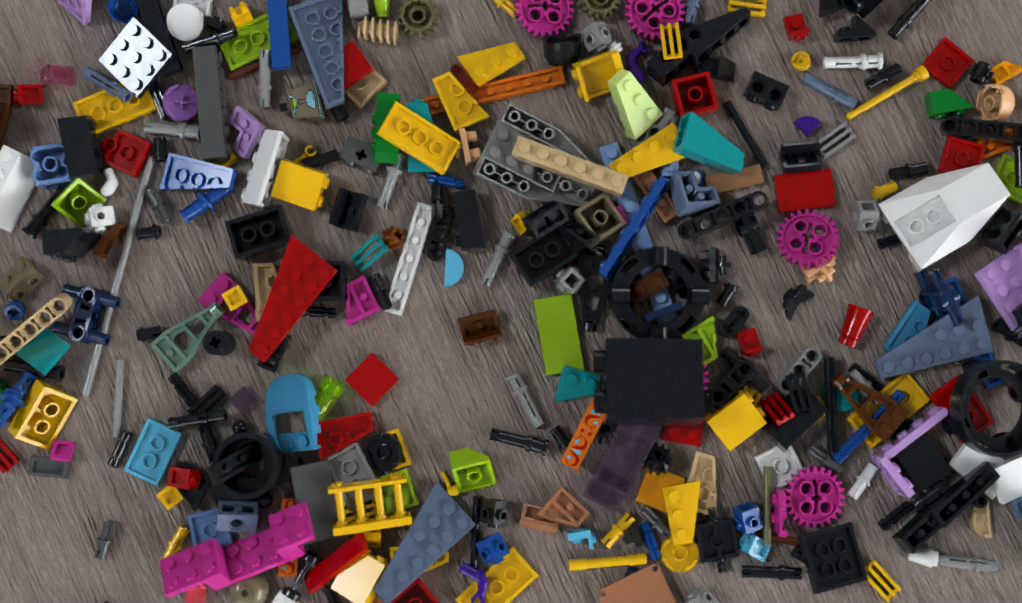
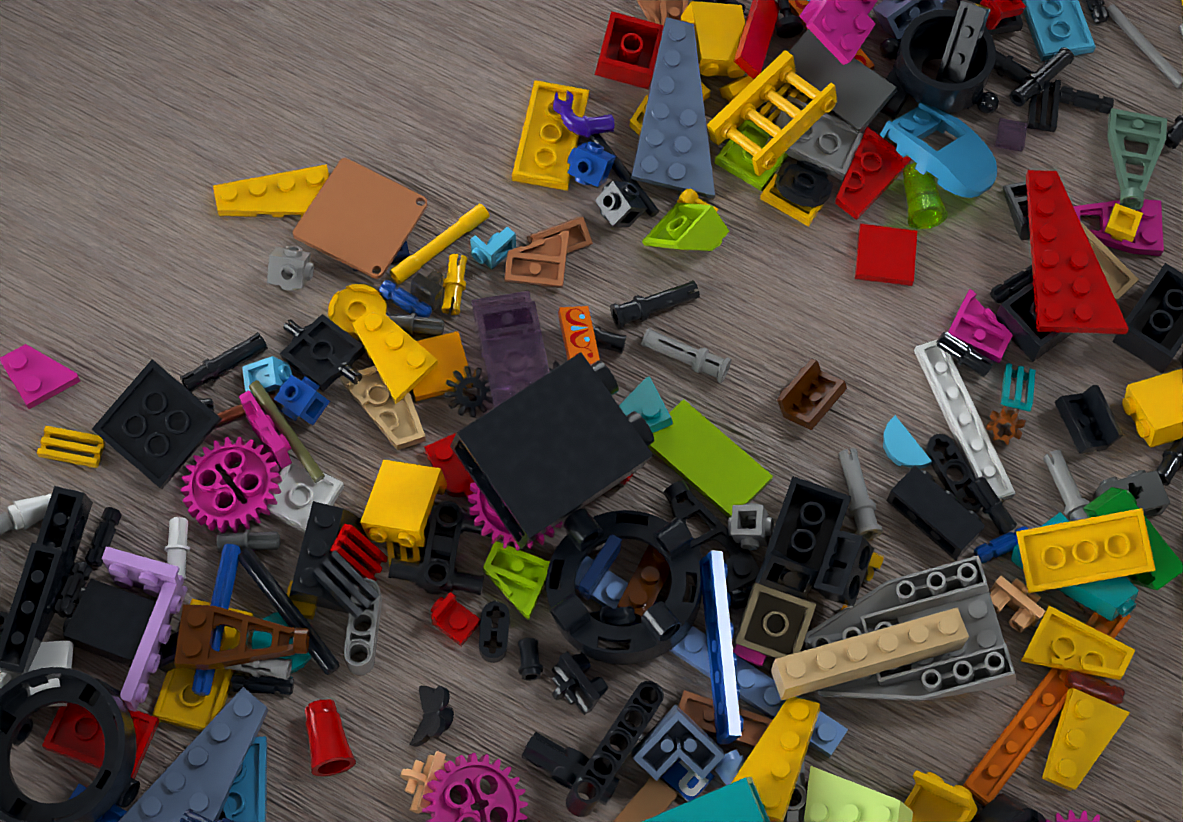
camera: 140 degrees right, 20 degrees down
(214, 337) = (1095, 165): black piece -> none

